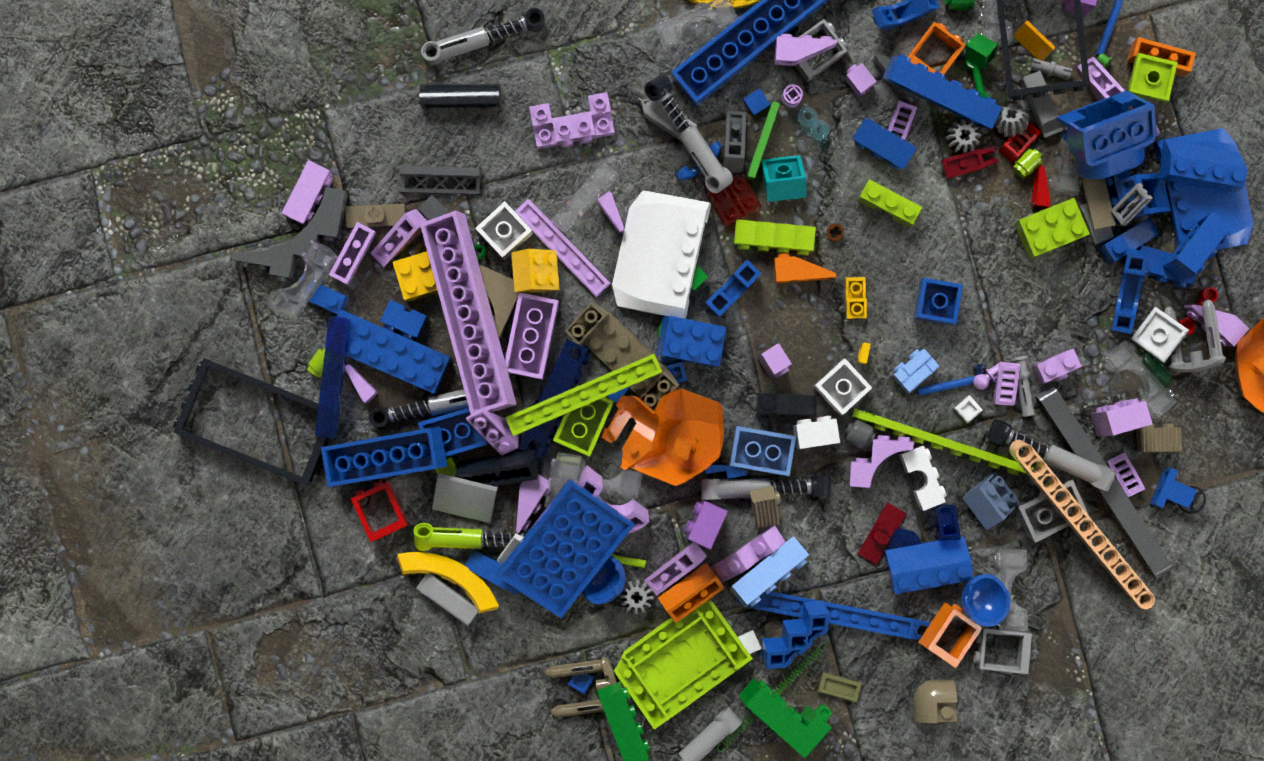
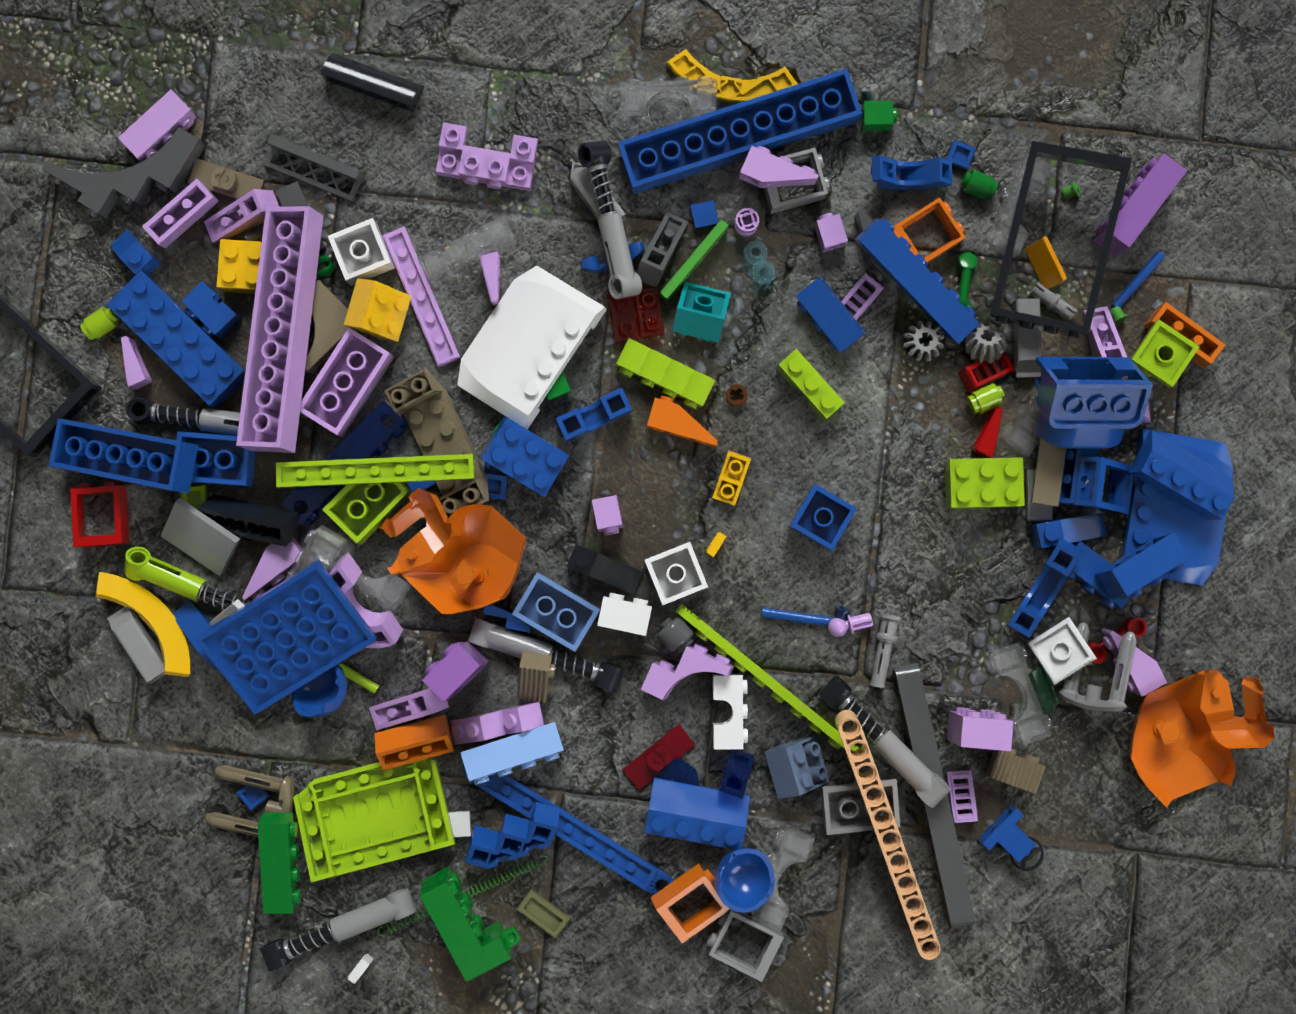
camera: 20 degrees right, 0 degrees up
(292, 300) = (91, 241): clear arch -> none
(332, 377) = (101, 343): clear blue plate -> none
(480, 37) = (420, 24): piece -> none
(494, 430) = (259, 473): lavender slope -> none
(642, 592) = (343, 725): light grey gear -> none
(915, 370) = (766, 586): light blue brick -> none
(935, 702) = (645, 972): dark tan brick -> none
(967, 163) = (917, 372): dark red hinge -> none
(968, 409) = (811, 653): white tile -> none
(980, 50) = (980, 250): green brick -> none
(1006, 396) = (858, 654): lavender slope -> none
(1056, 366) = (930, 643): lavender brick -> none
(1142, 194) = (1101, 482): light grey tile -> none

